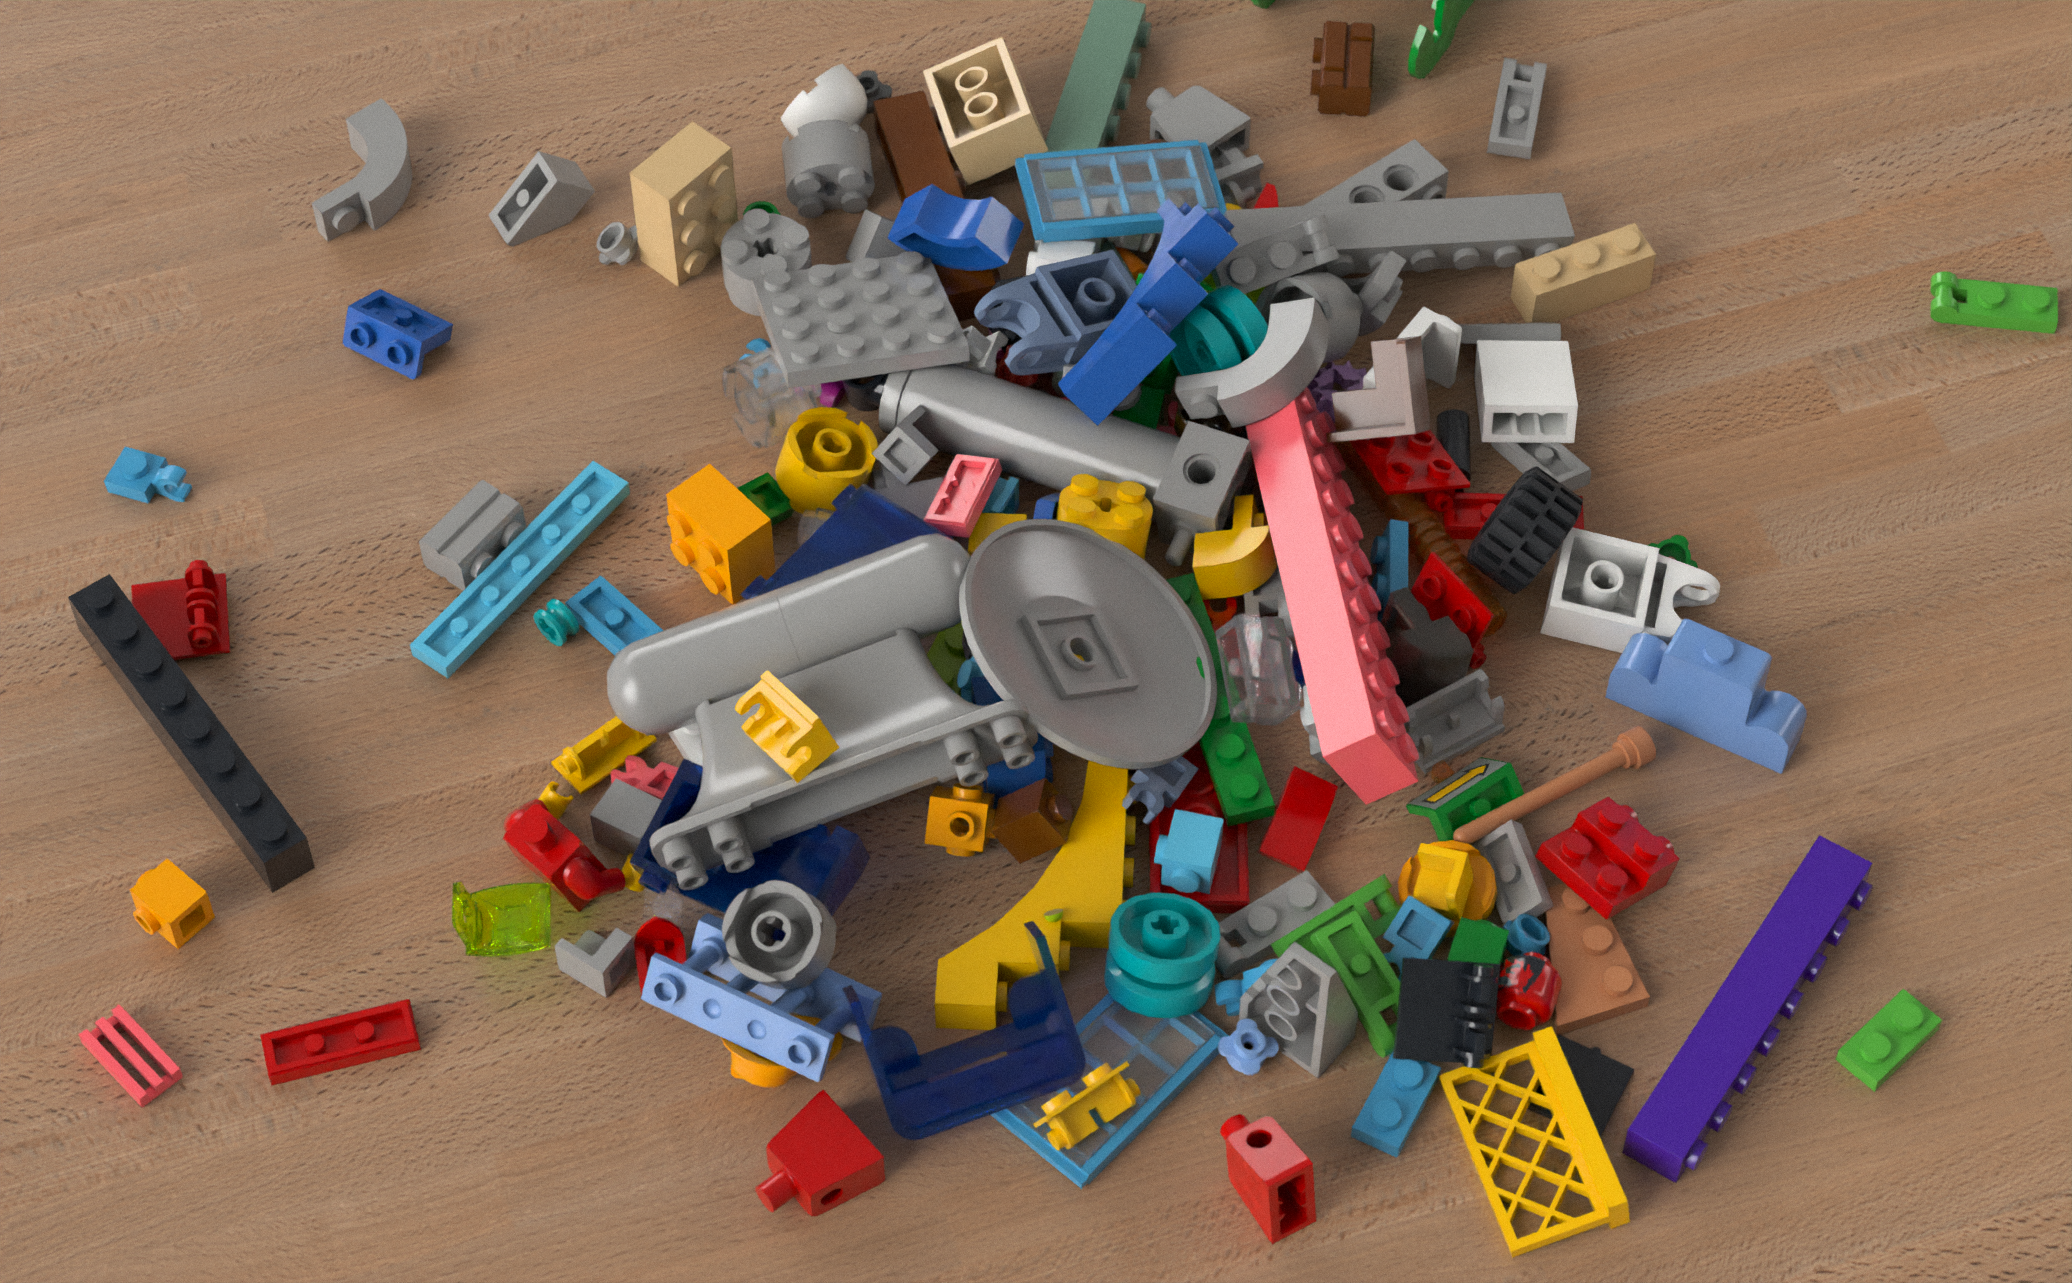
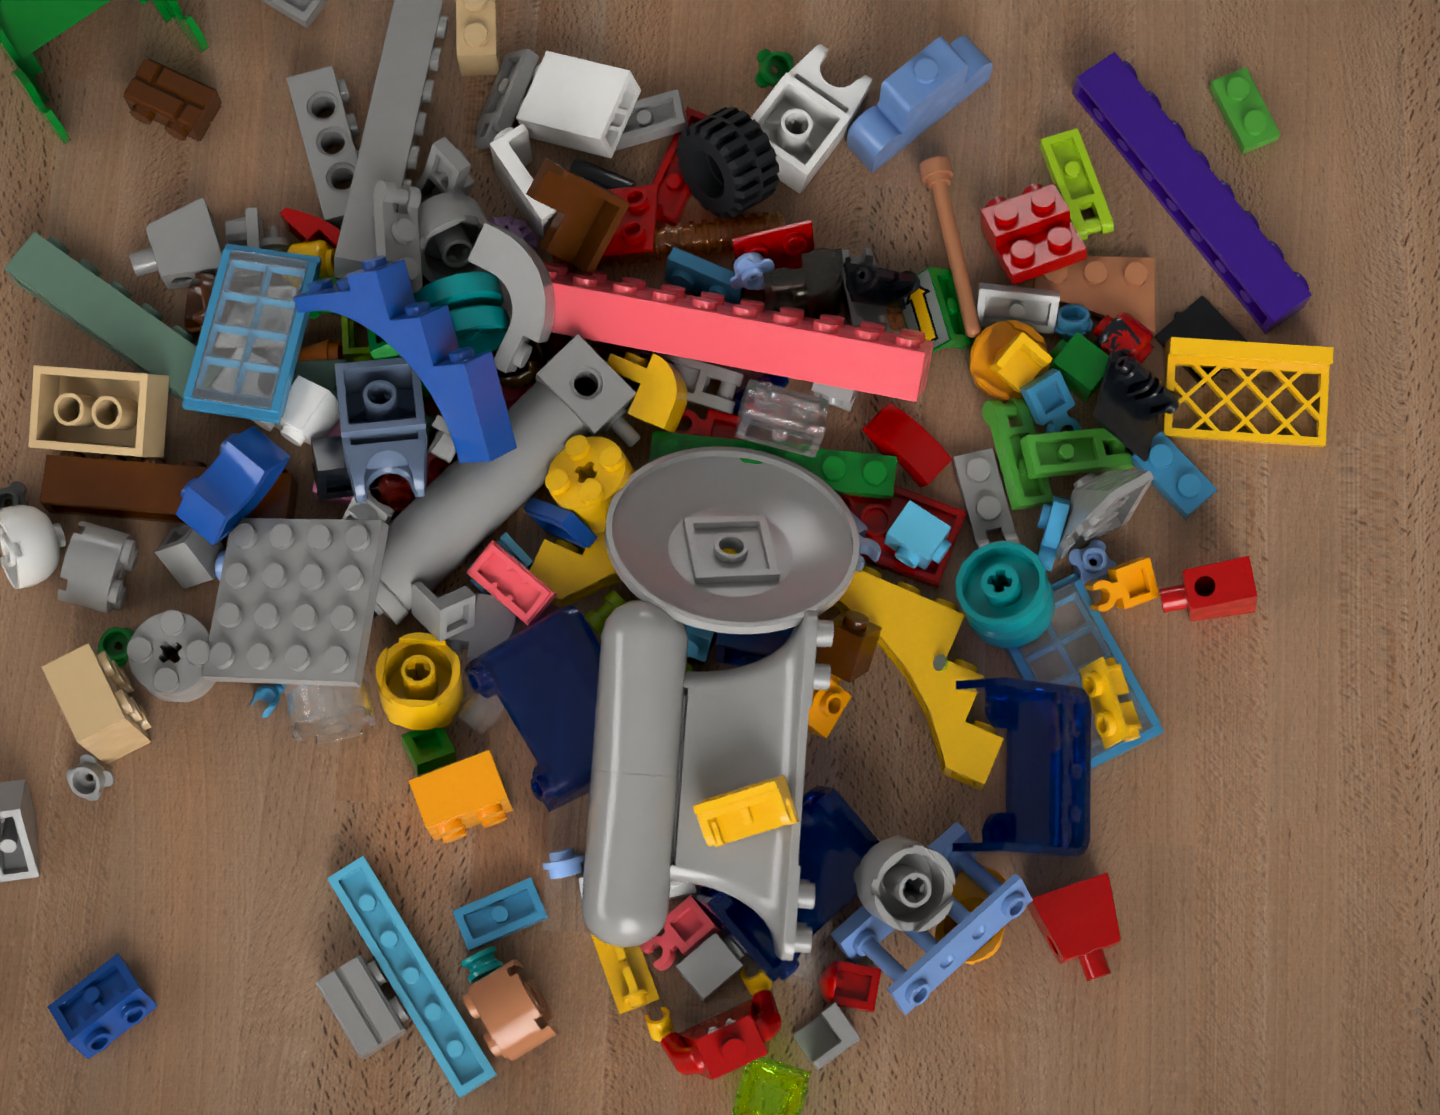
camera: 70 degrees left, 20 degrees up
(513, 652) = (510, 1011): none -> nougat brick
(1237, 1087) = (1128, 585): none -> light orange plate
(1416, 581) = (750, 270): none -> light blue plate
(1461, 720) = (879, 285): none -> black hinge
(1696, 890) = (1076, 182): none -> lime plate

